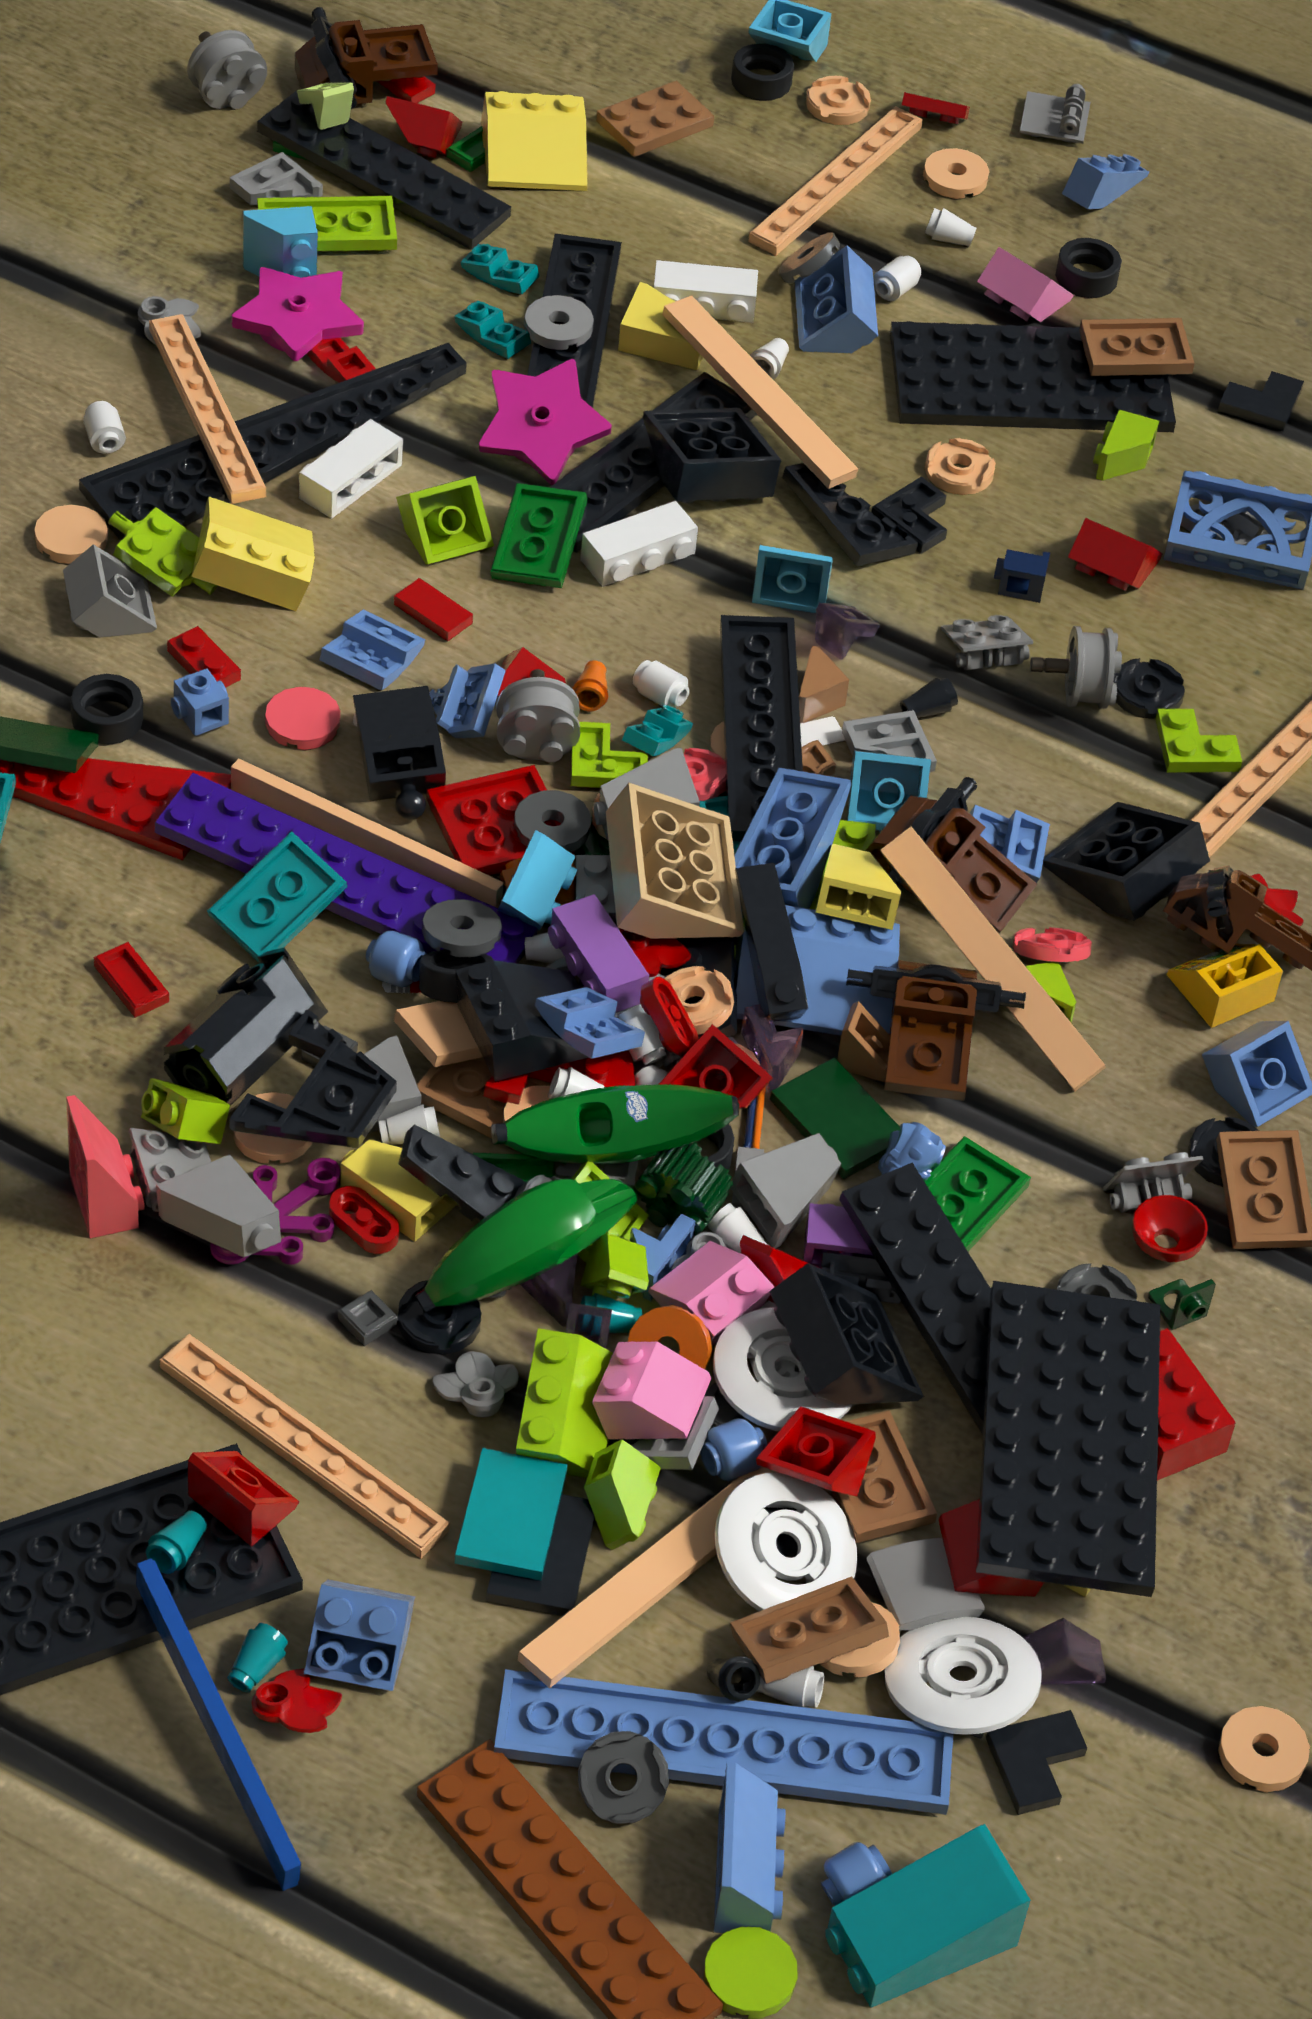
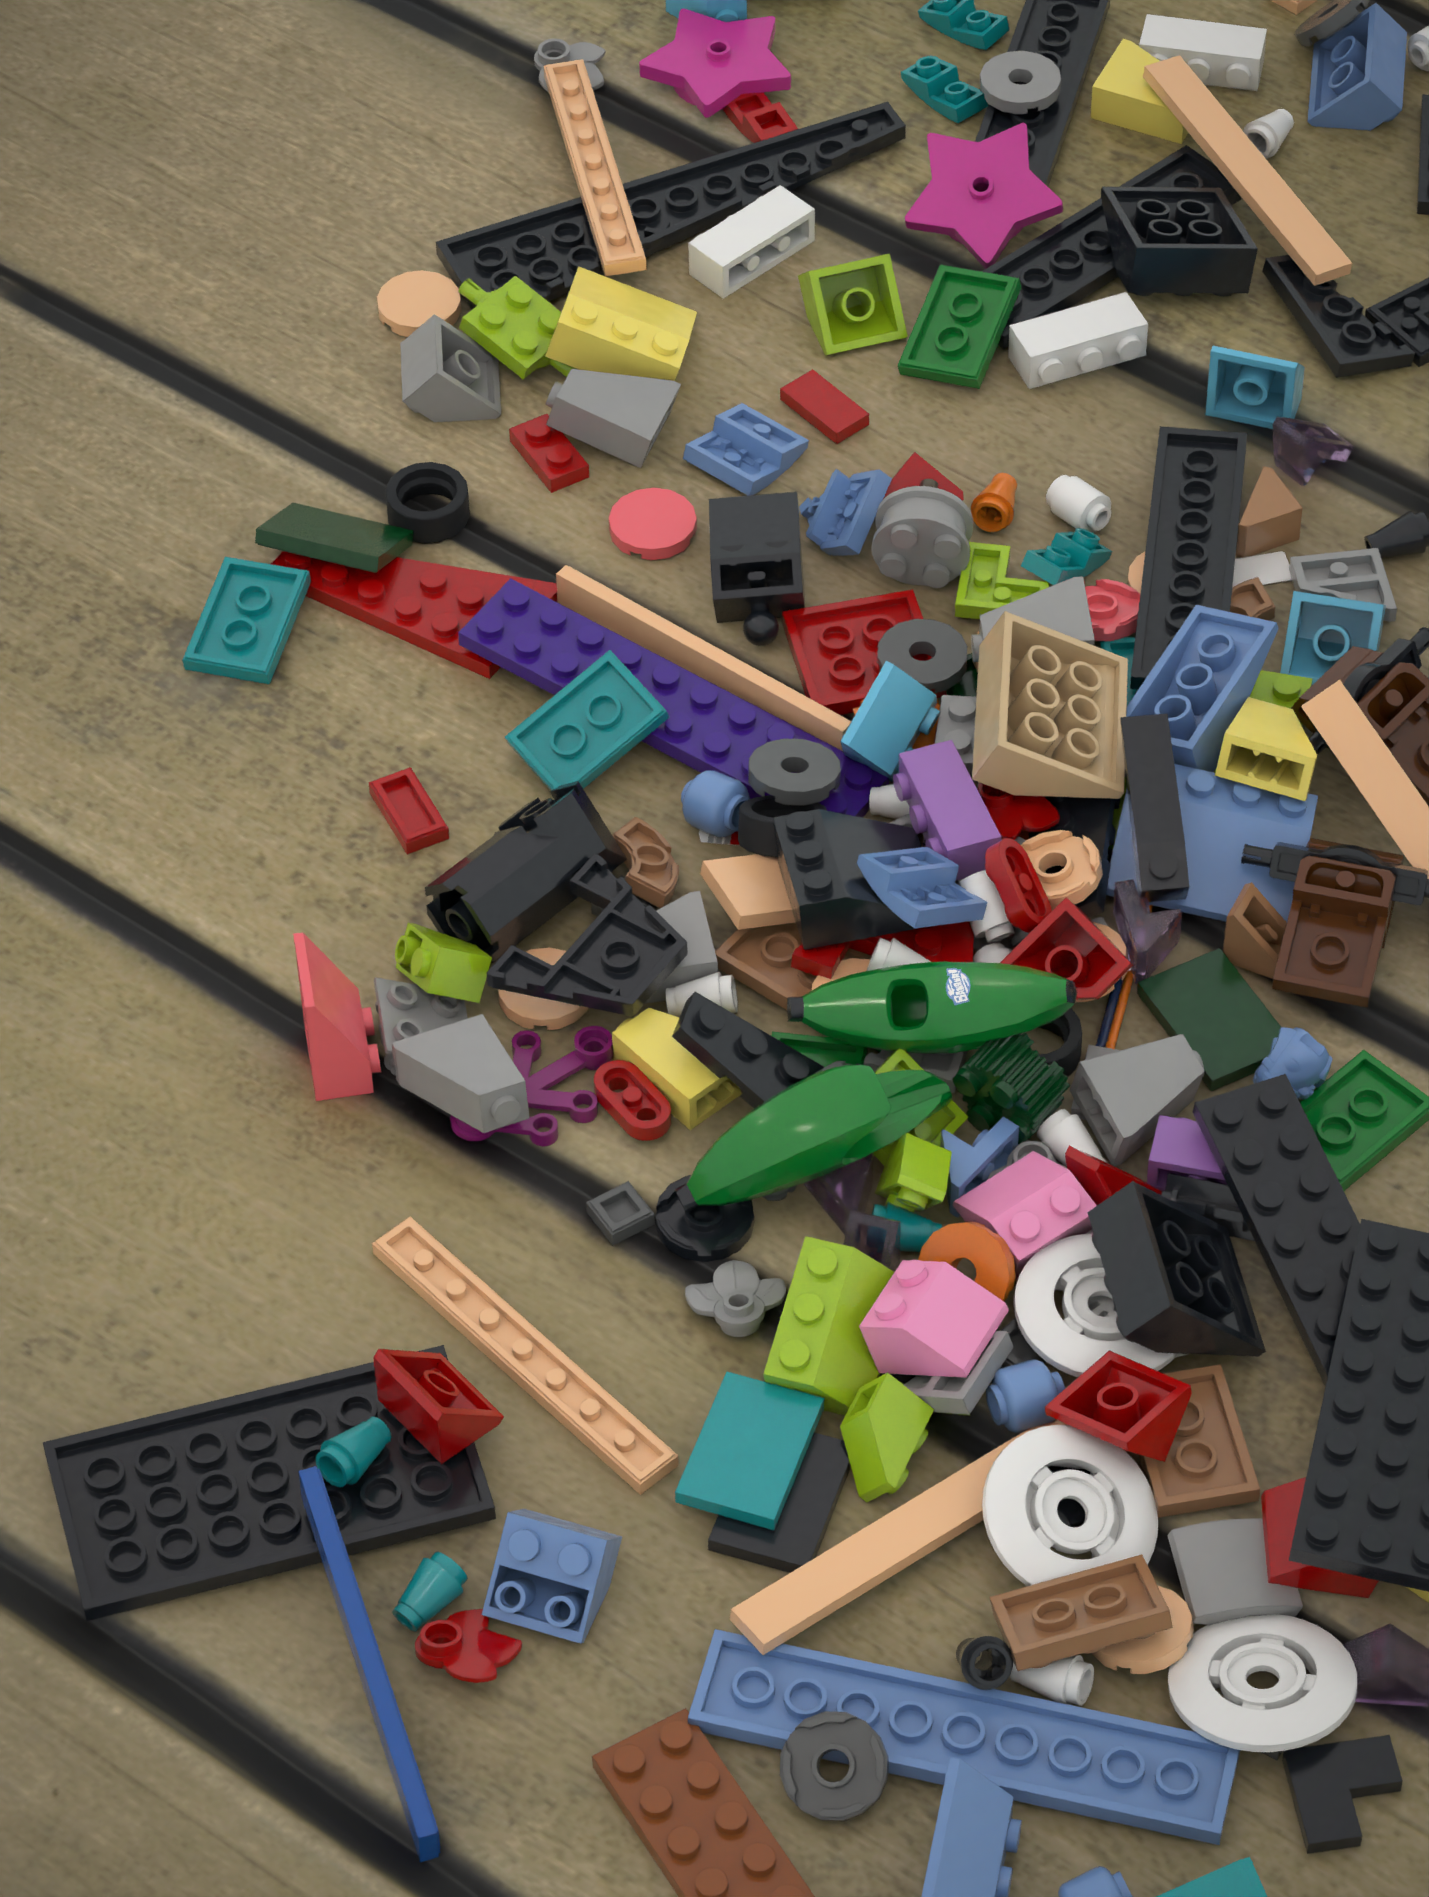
camera: 15 degrees right, 0 degrees up
(104, 427) = (474, 185): white brick -> none
(201, 702) = (534, 499): medium blue brick -> none
(256, 622) = (612, 411): none -> light grey slope
(346, 1012) = (649, 862): none -> medium nougat tile

